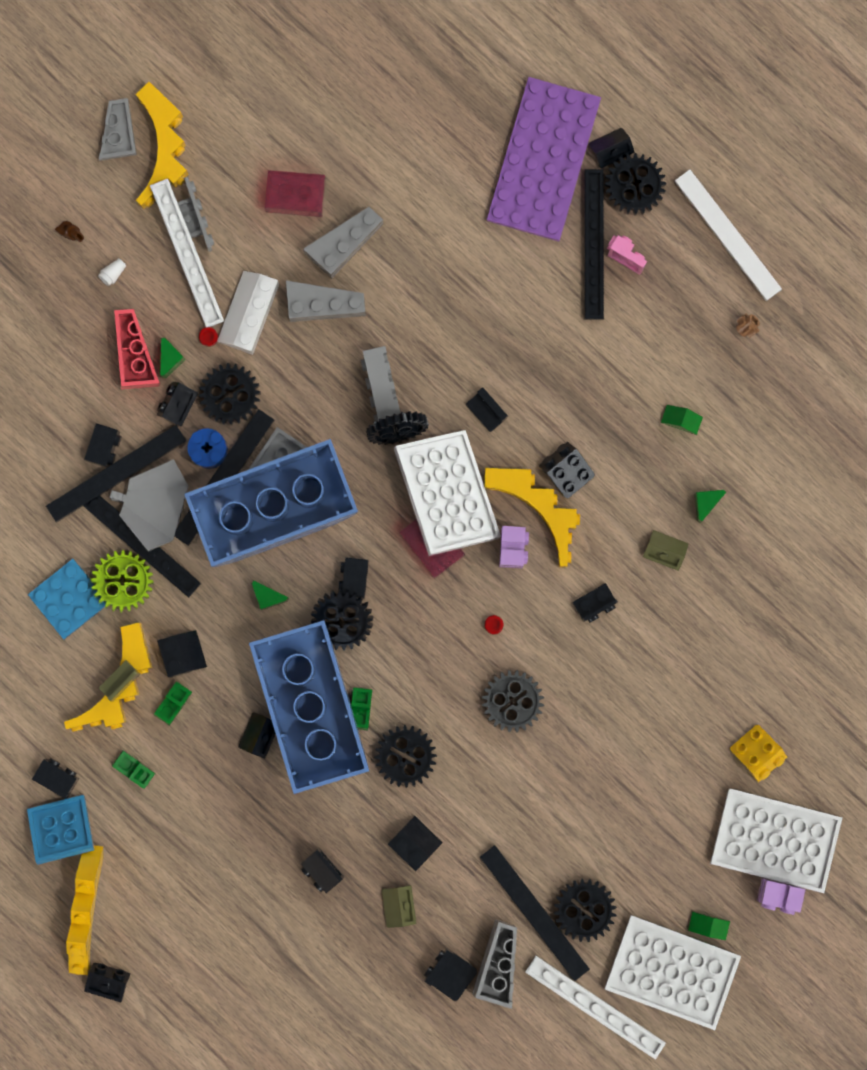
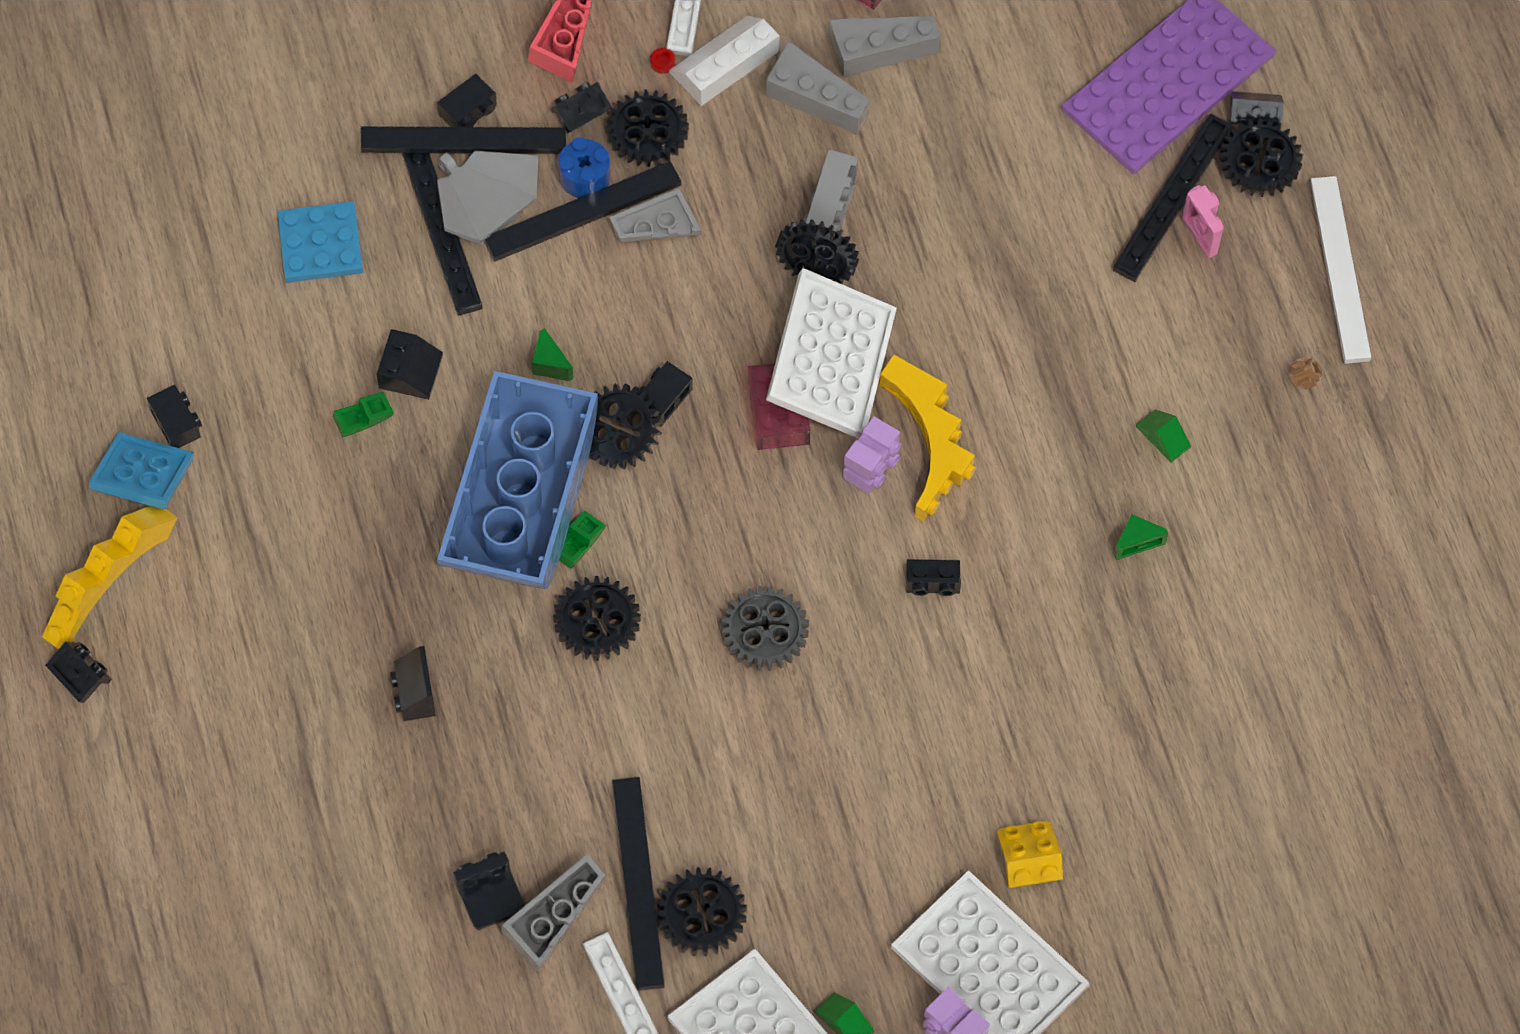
camera: 30 degrees right, 20 degrees down
(119, 681) = (319, 347): olive panel -> none
(122, 564) = (405, 237): lime gear -> none
(133, 769) = (269, 458): green slope -> none
(137, 654) = (319, 364): yellow arch -> none
(170, 358) = (603, 57): green slope -> none
(258, 735) = (436, 502): black panel -> none
(271, 504) = (617, 252): medium blue brick -> none
(399, 906) = (479, 781): olive panel -> none
(415, 843) = (543, 720): black slope -> none
(486, 410) = (936, 301): black panel -> none
(494, 624) = (796, 535): red tile -> none
(567, 469) = (991, 414): black bracket -> none
(666, 550) = (1054, 564): olive panel -> none

